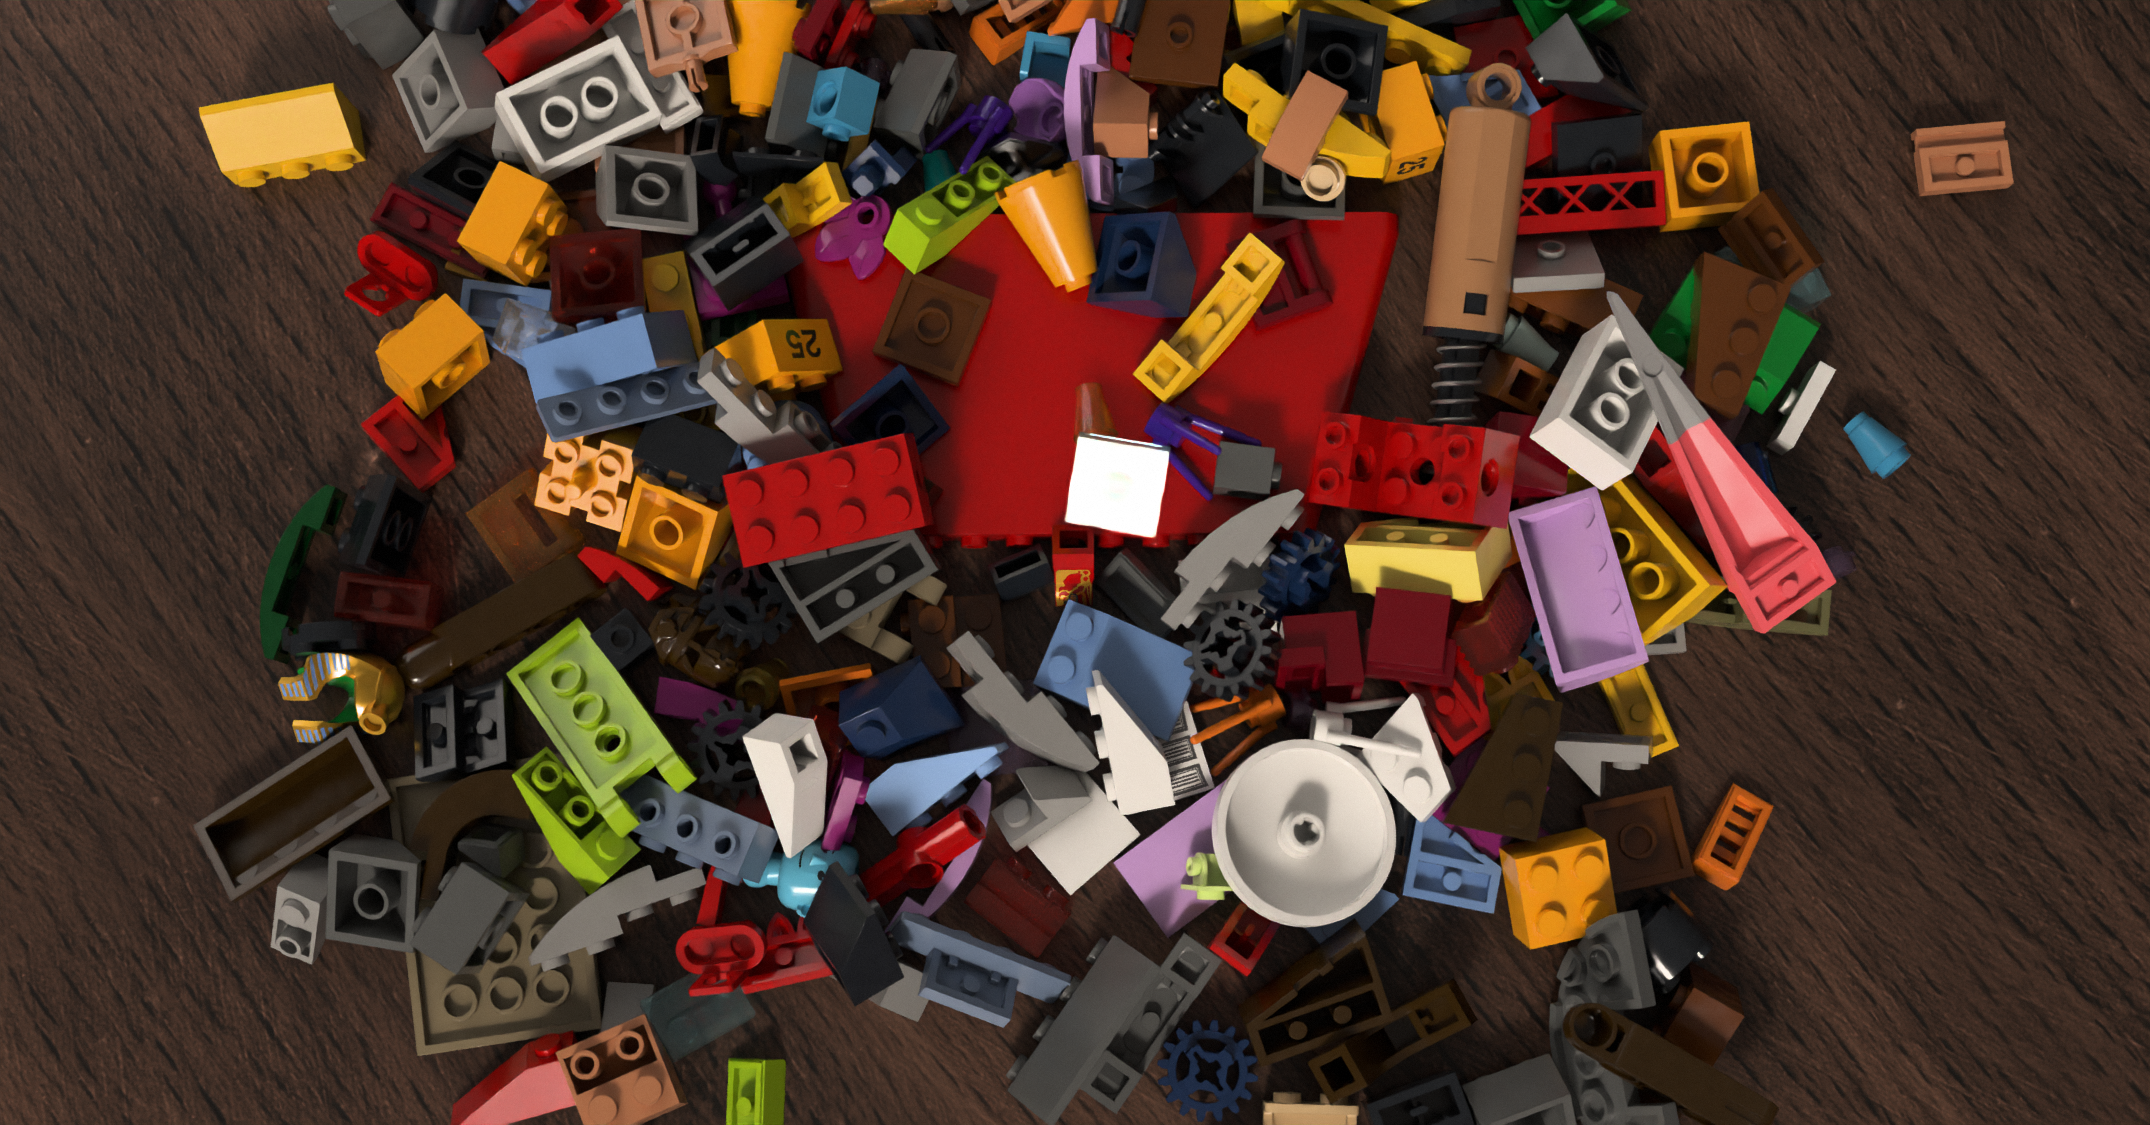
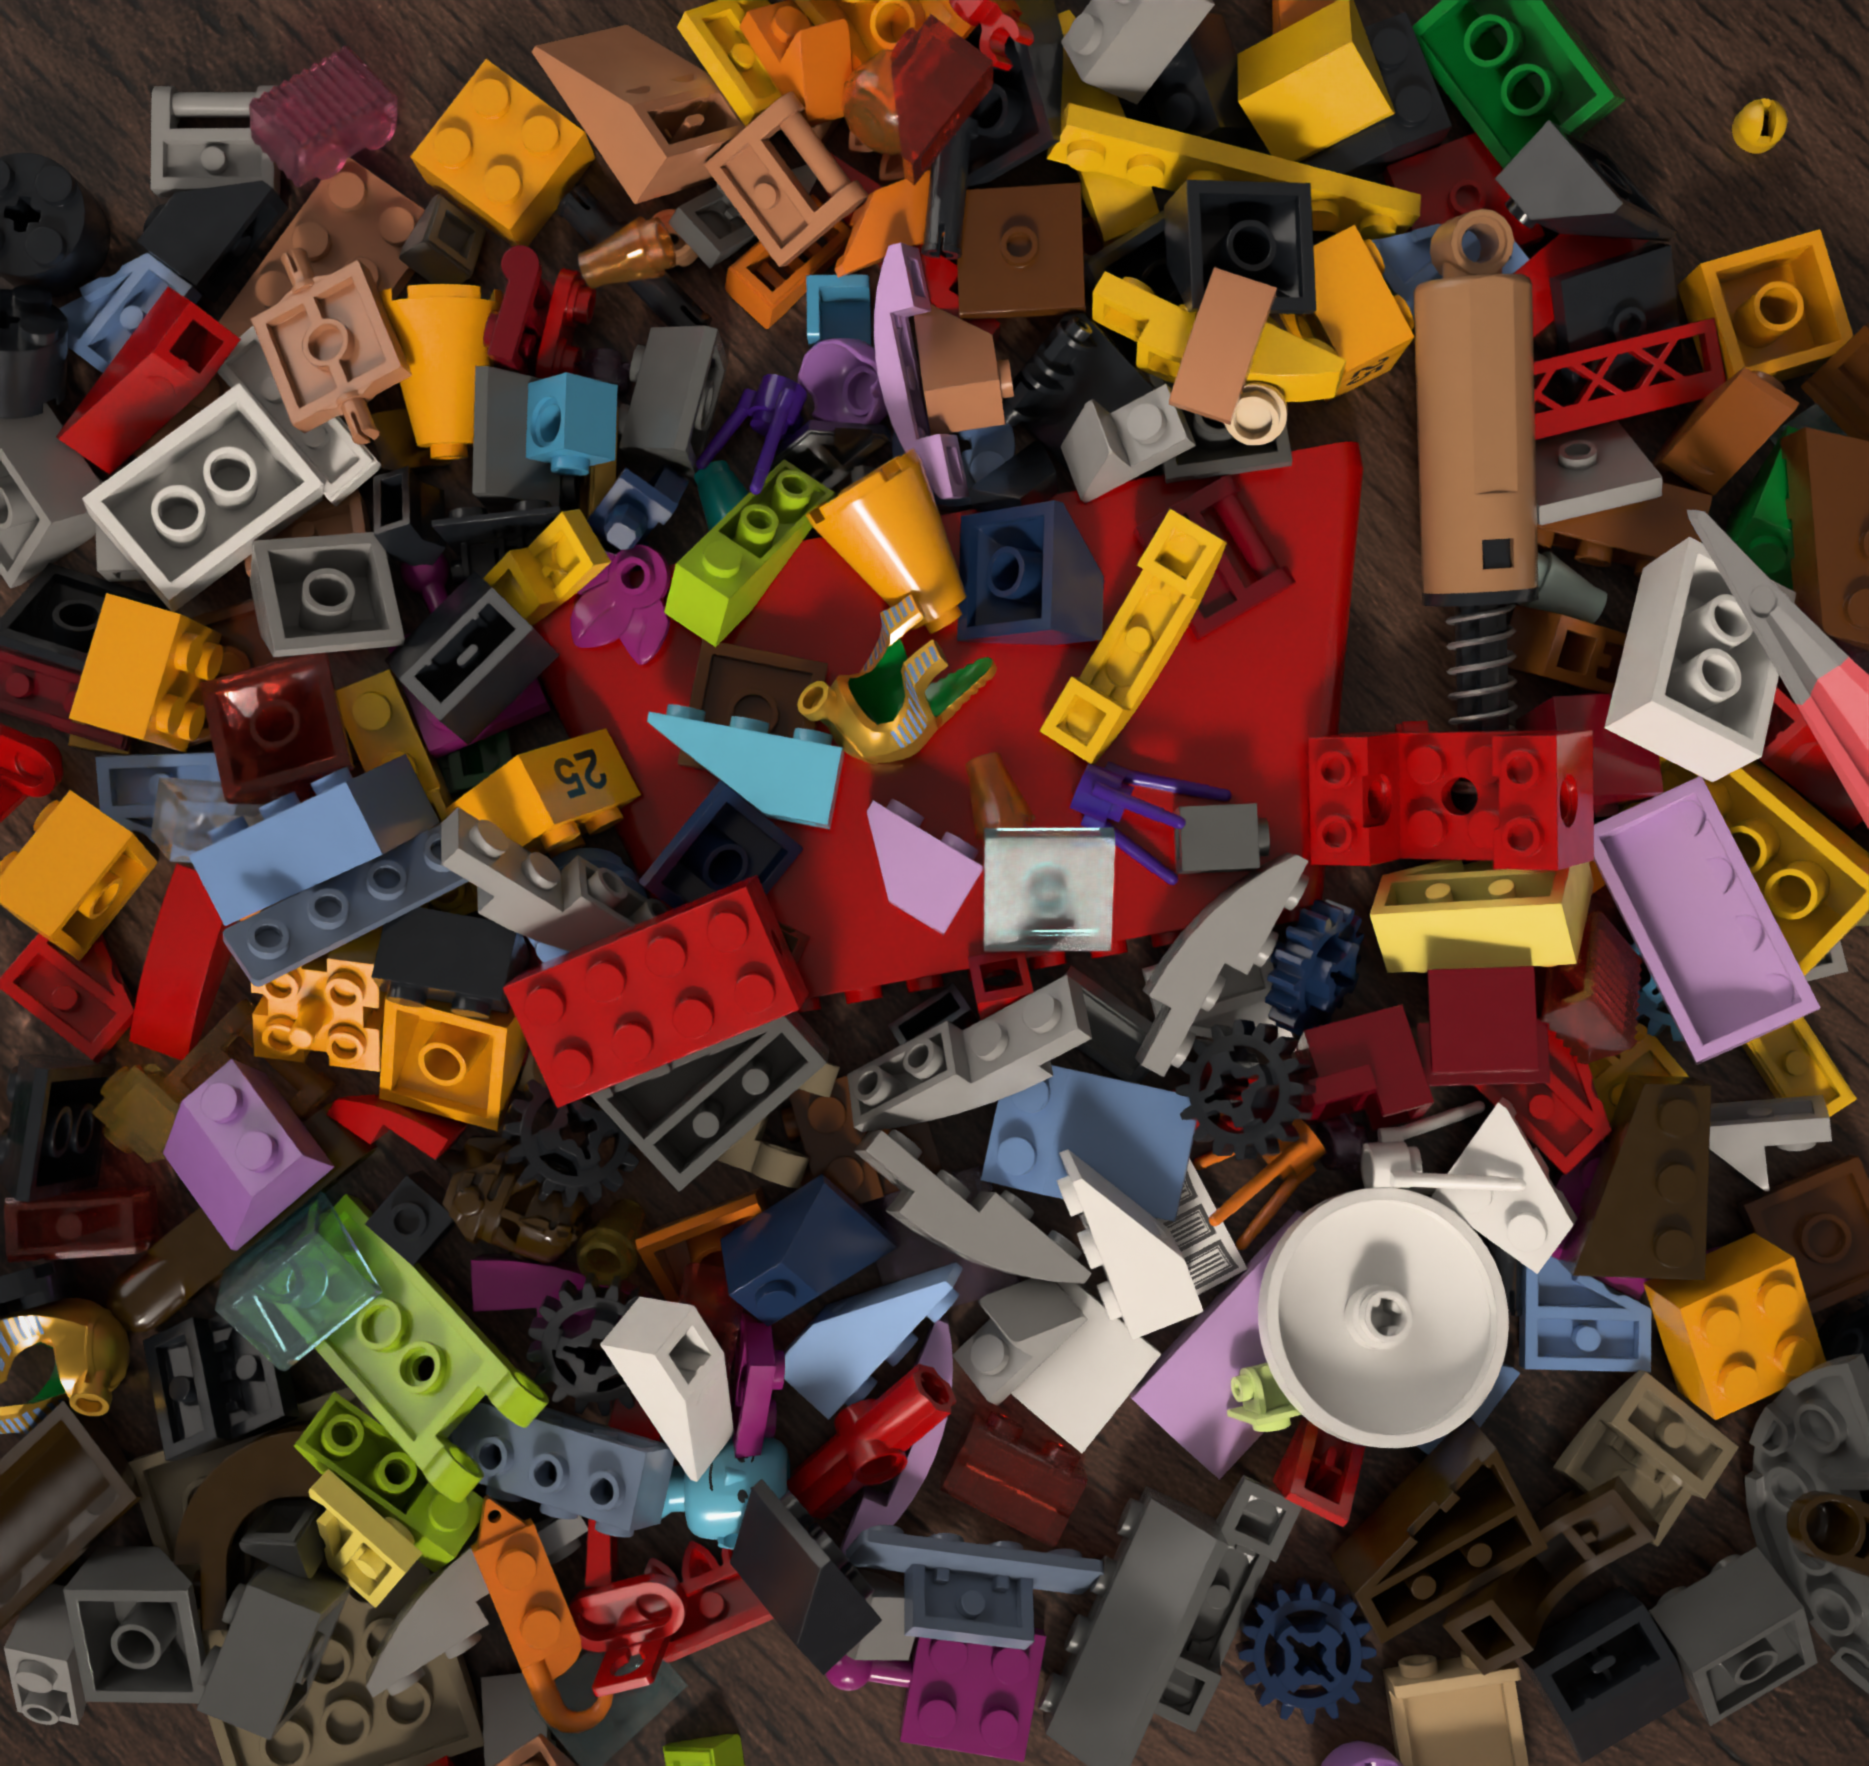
camera: 15 degrees left, 5 degrees up
(448, 534) = (138, 1111): none -> clear yellow brick
(495, 435) = (180, 968): none -> red slope
(512, 569) = (242, 1151): none -> medium lavender slope
(533, 672) = (297, 1284): none -> clear light blue slope
(546, 859) = (359, 1542): none -> light yellow wing
(656, 933) = (532, 1613): none -> orange plate
(941, 368) = (774, 773): none -> medium azure slope
(951, 1052) = (958, 1693): none -> magenta plate
(1028, 338) = (891, 703): none -> pearl gold piece
(1029, 456) = (918, 870): none -> lavender slope
(1034, 601) = (970, 1067): none -> light grey slope
(1227, 185) = (1120, 445): none -> light grey slope
(1488, 970) = (1652, 1445): none -> dark tan slope
(1654, 250) = (1723, 431): none -> dark orange slope
(1718, 42) = (1749, 124): none -> yellow hinge

